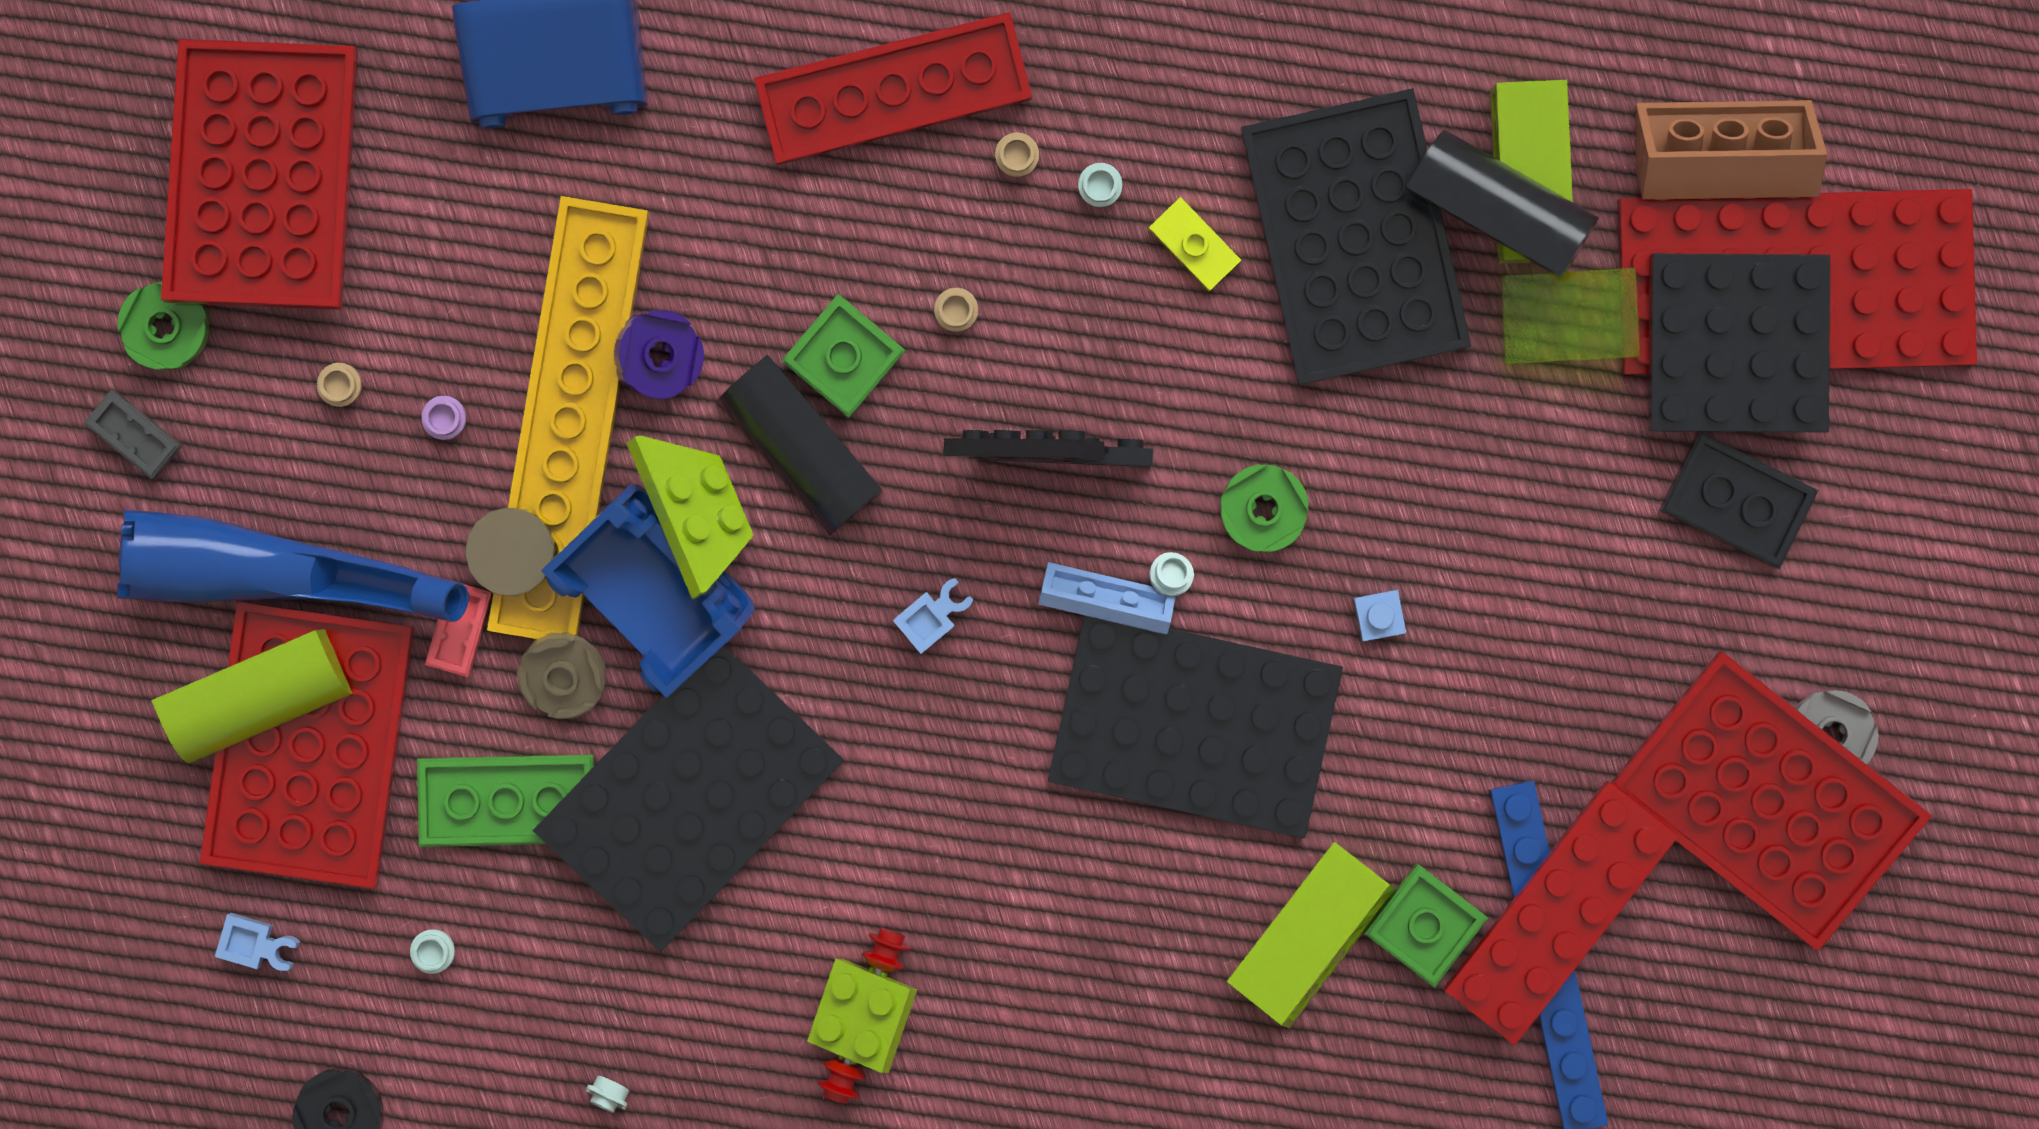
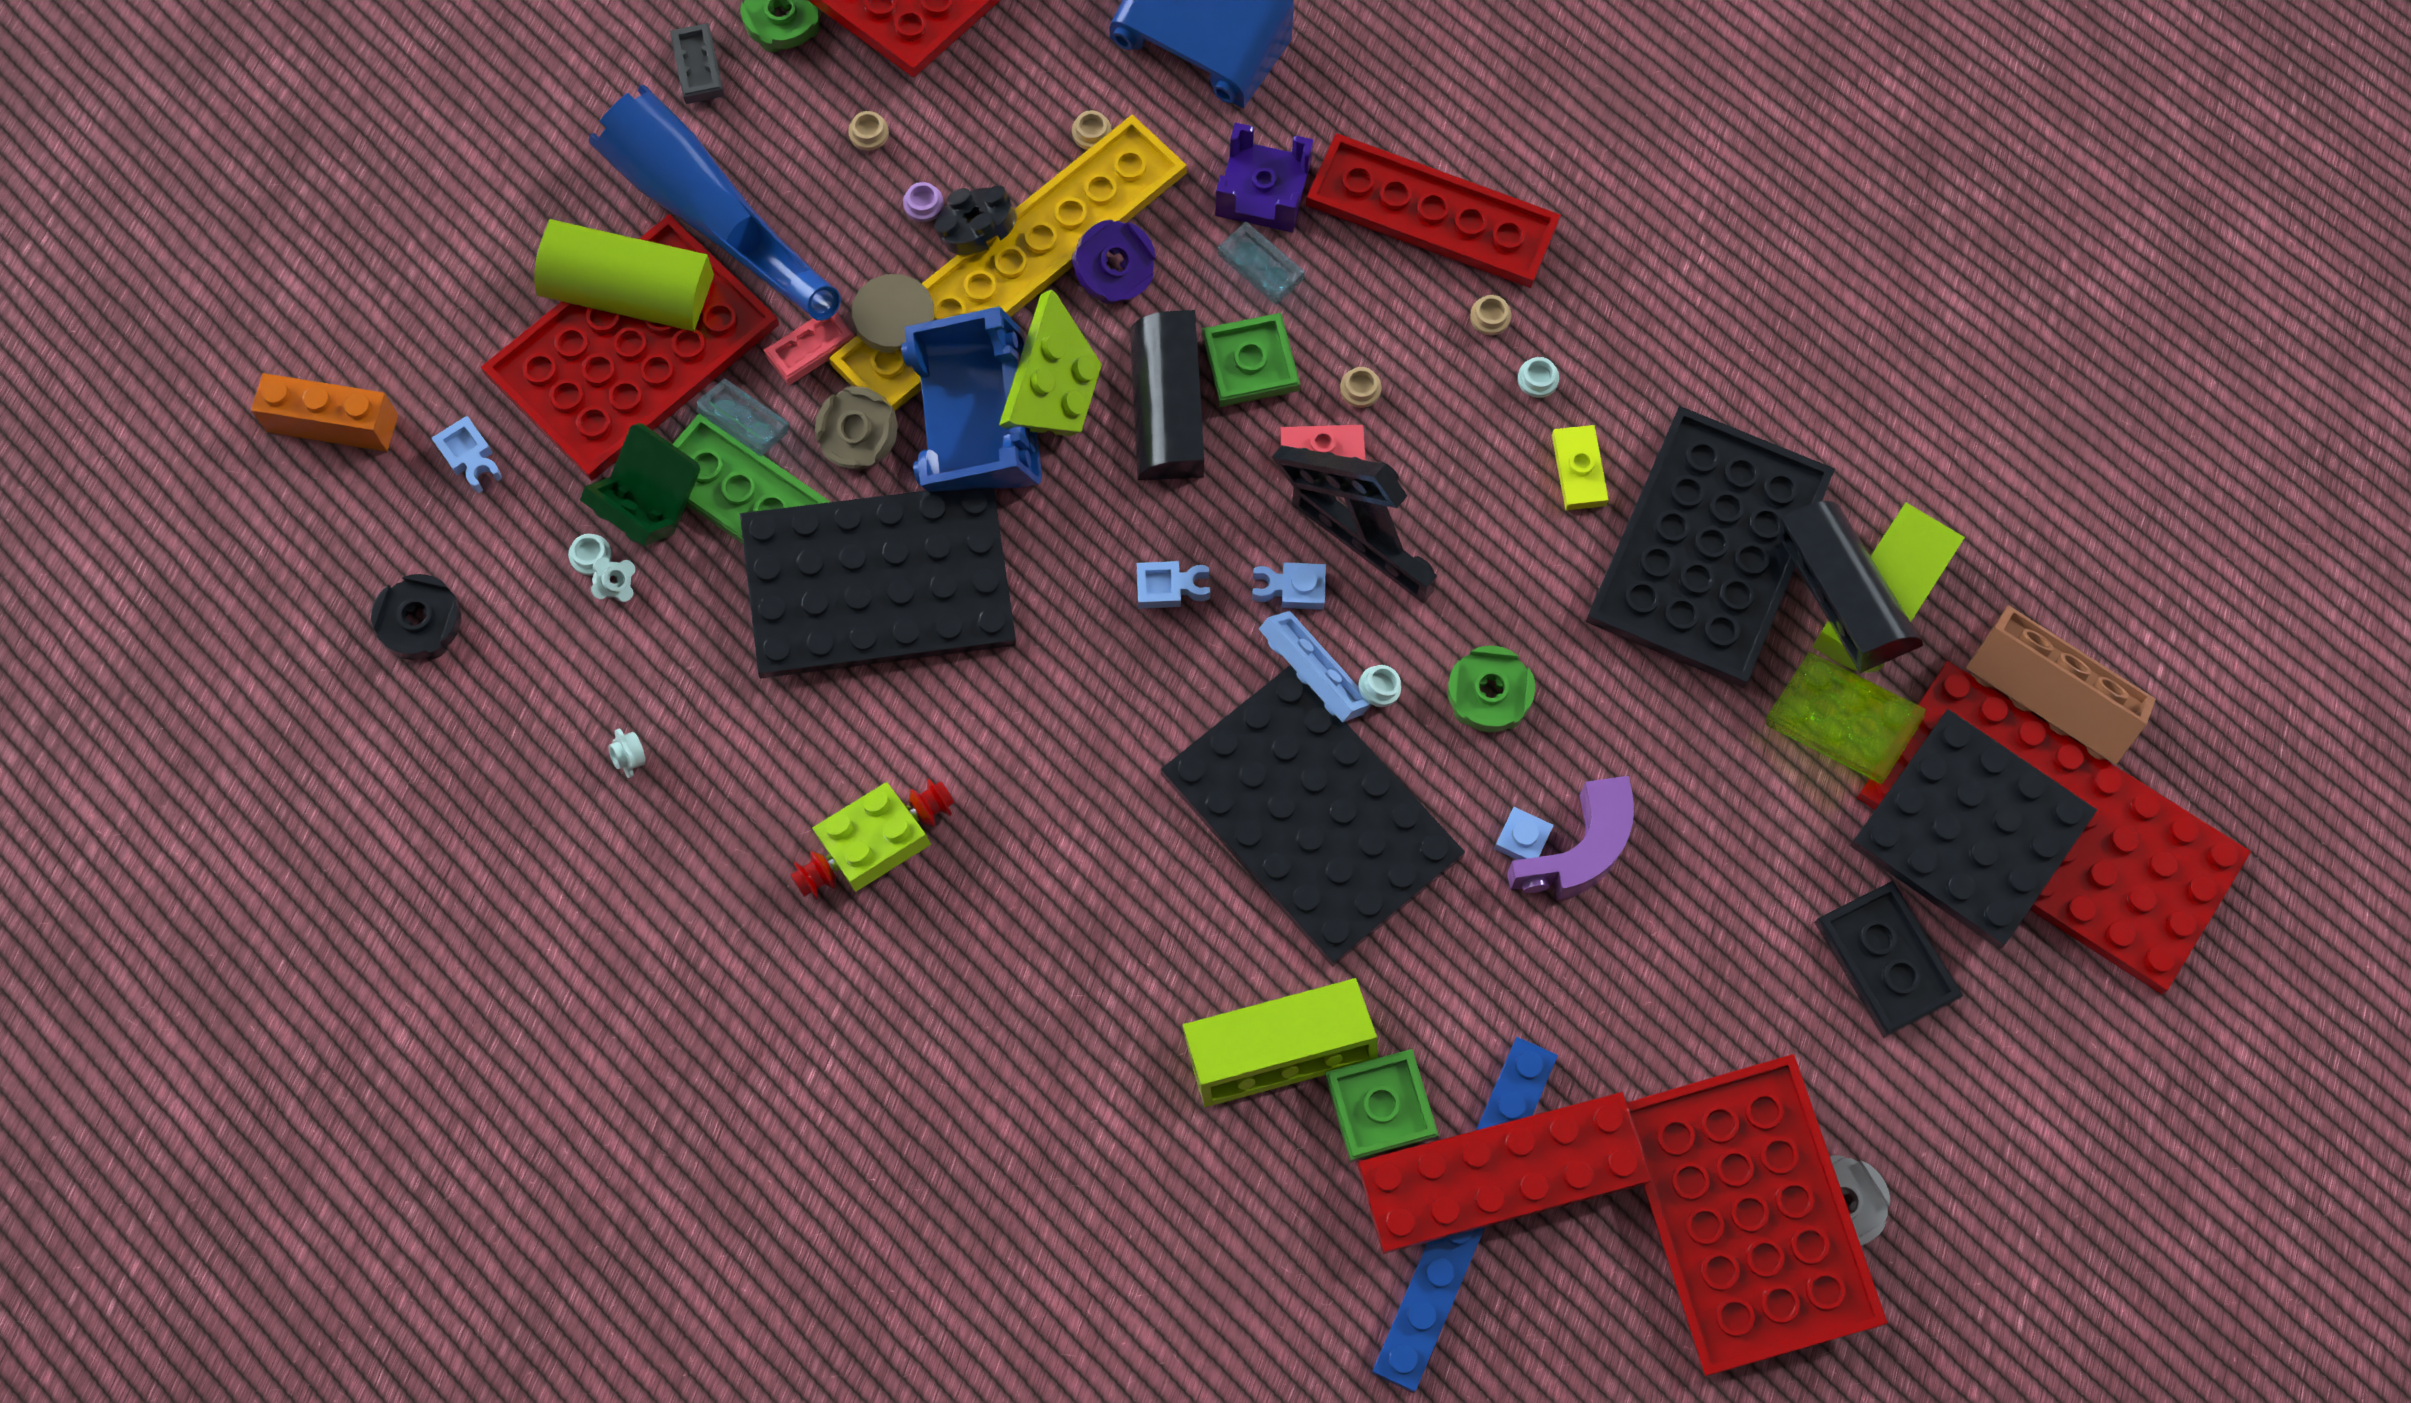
camera: 35 degrees right, 20 degrees down
(105, 1002) = (324, 412): none -> orange brick
(433, 870) = (645, 487): none -> dark green bracket
(457, 737) = (742, 417): none -> clear light blue plate
(460, 965) = (601, 579): none -> light aqua plate
(486, 400) = (974, 219): none -> black plate
(533, 234) = (1090, 128): none -> tan plate
(725, 172) = (1263, 182): none -> dark purple panel
(783, 255) = (1261, 263): none -> clear light blue plate
(964, 390) = (1336, 439): none -> coral plate
(1038, 532) = (1299, 585): none -> light blue plate
(1450, 588) = (1608, 824): none -> medium lavender arch

